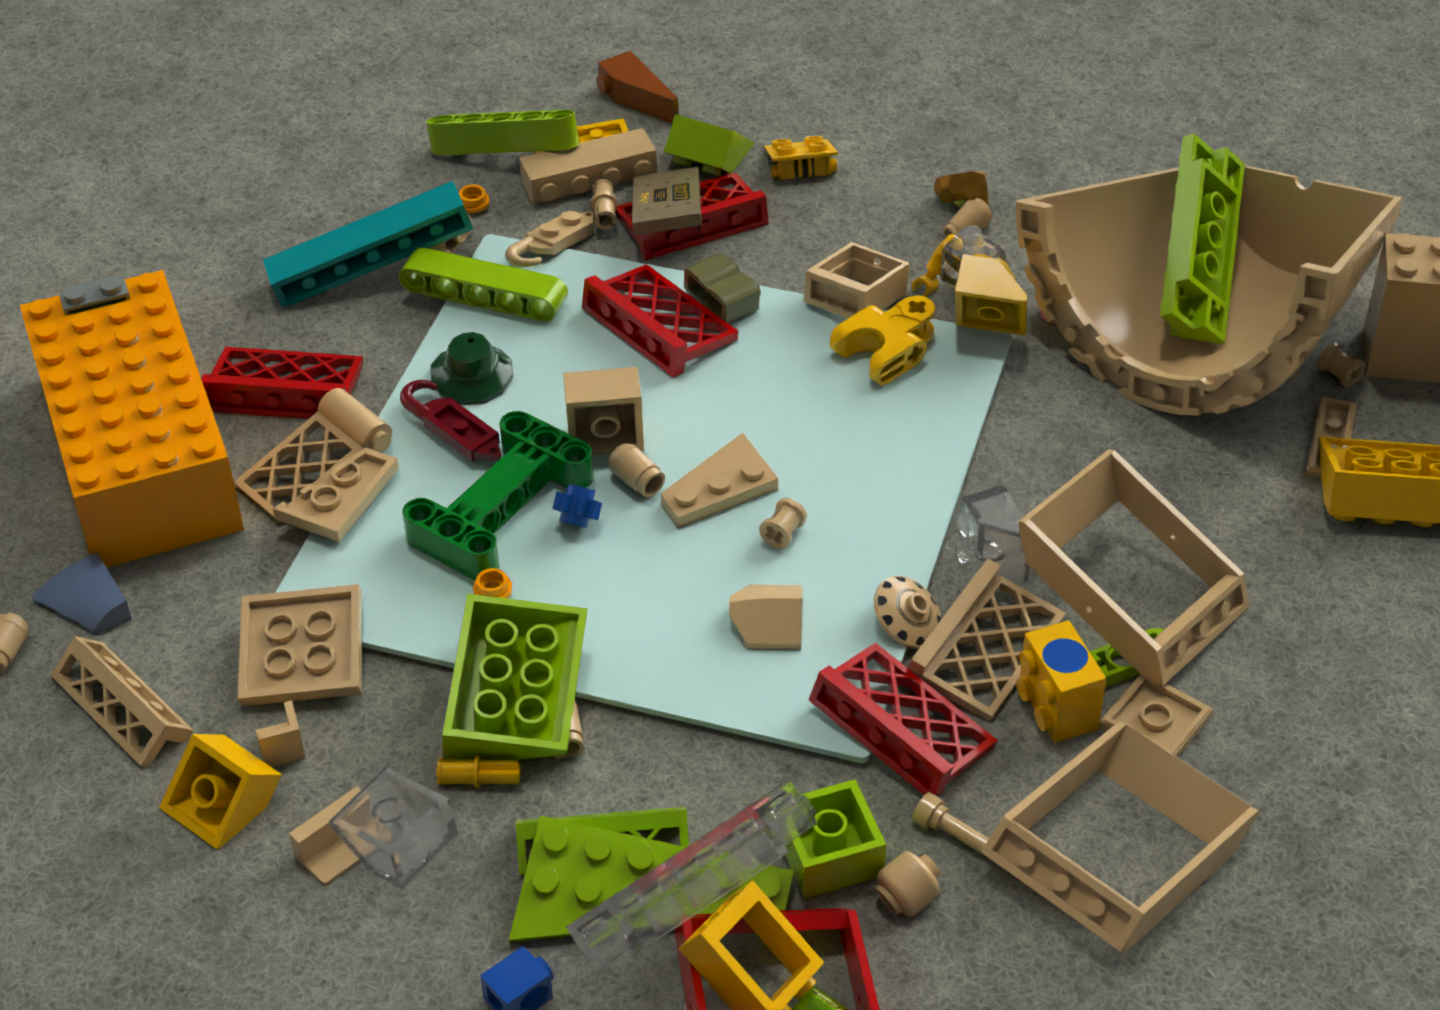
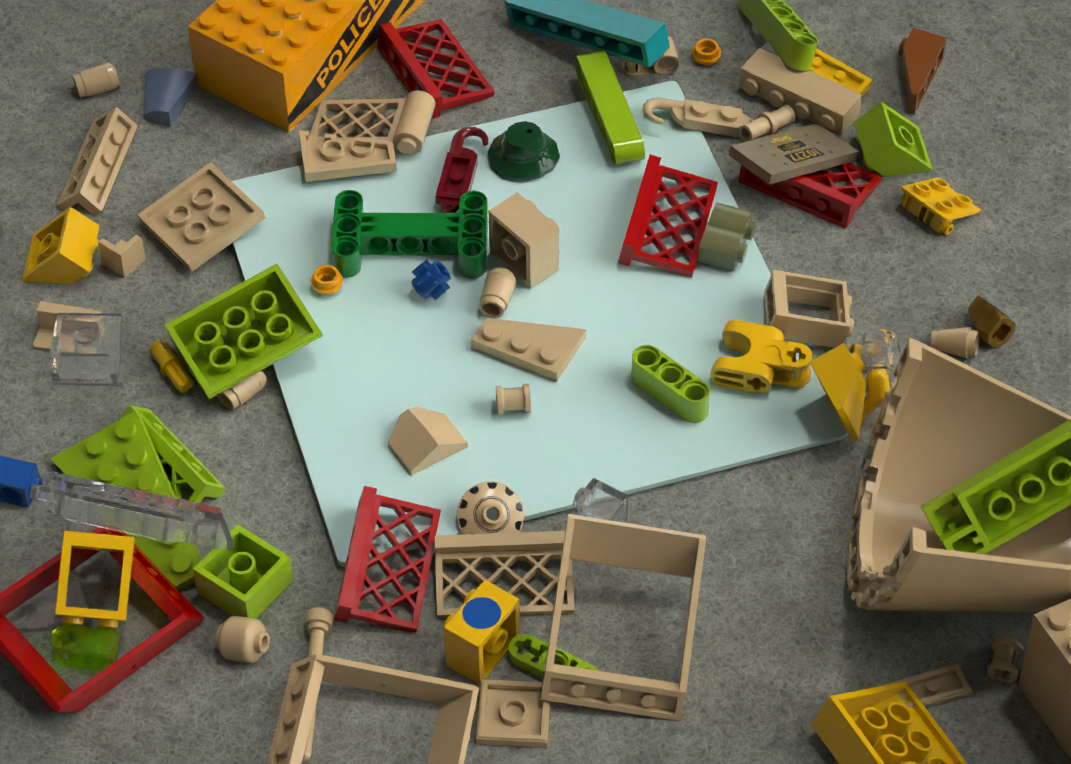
camera: 55 degrees right, 5 degrees up
(864, 408) = (670, 383): none -> lime beam

